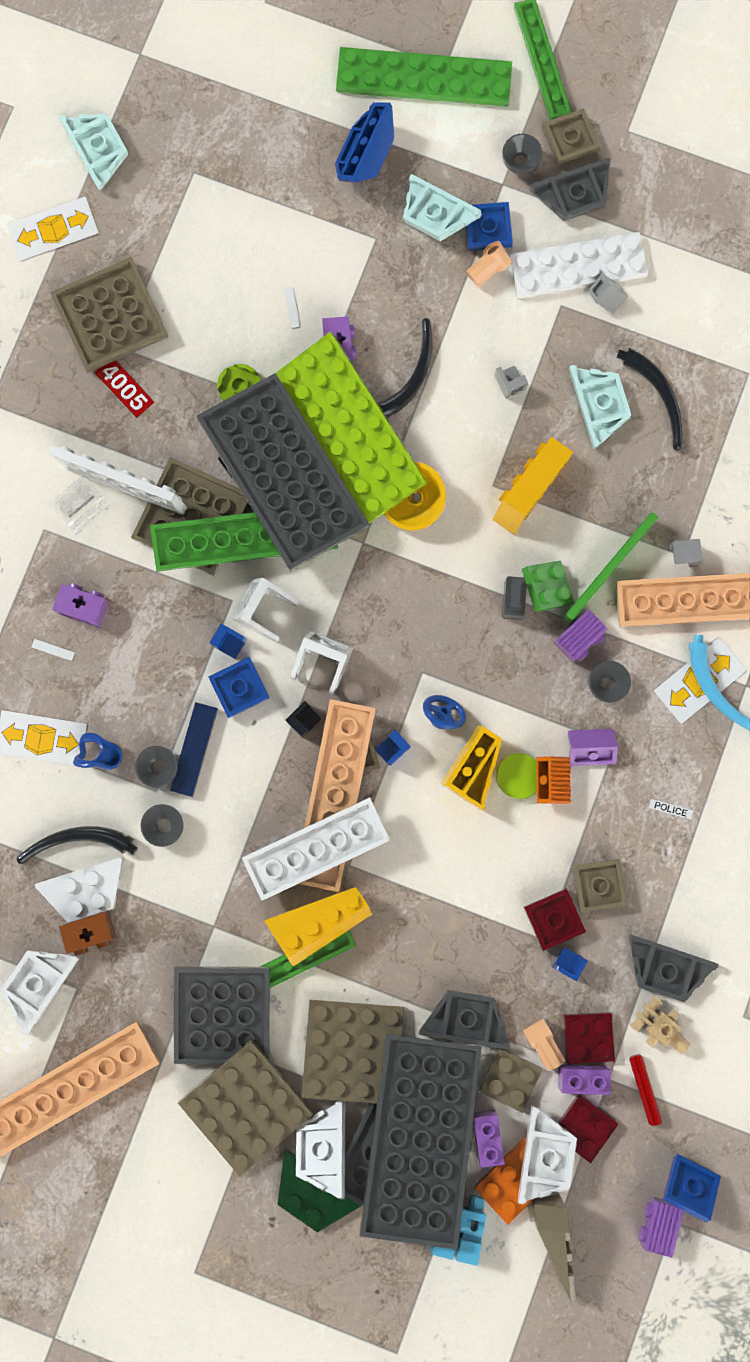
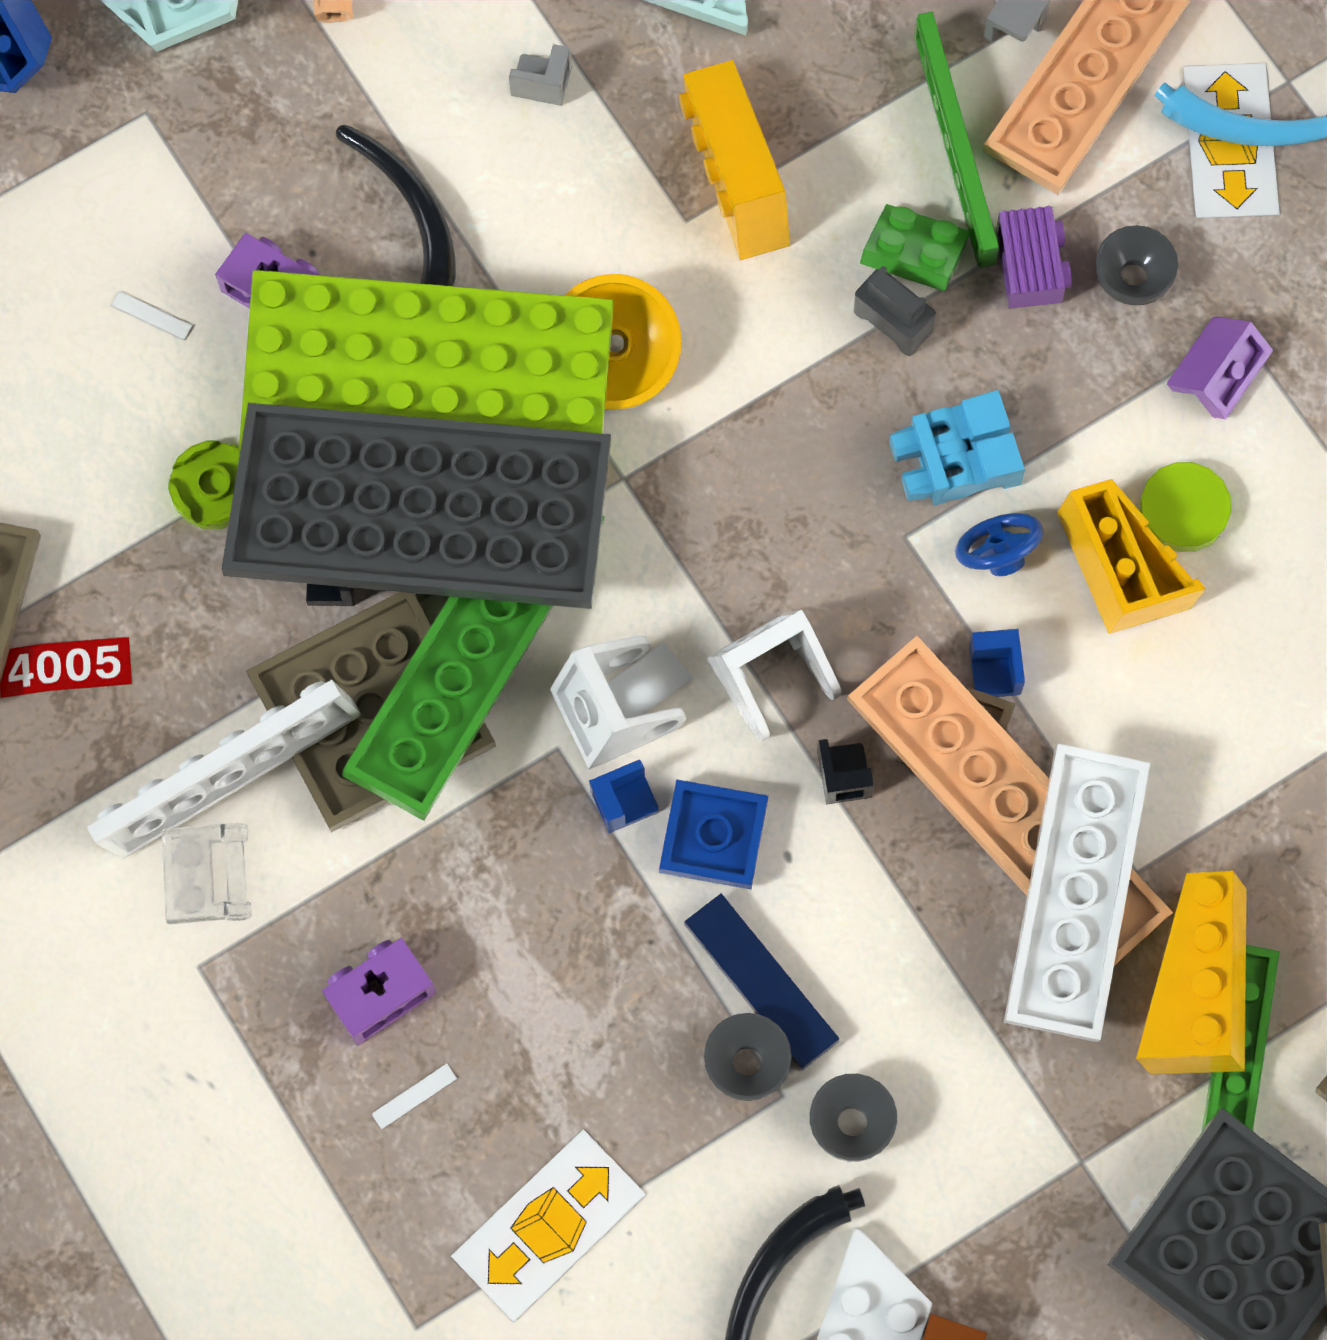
camera: 50 degrees left, 10 degrees down
(109, 755) = (669, 1119): blue piece -> none
(284, 615) = (648, 681): none -> white sticker
(470, 659) = (974, 424): none -> medium azure hips
(553, 780) = (1231, 456): orange brick -> none

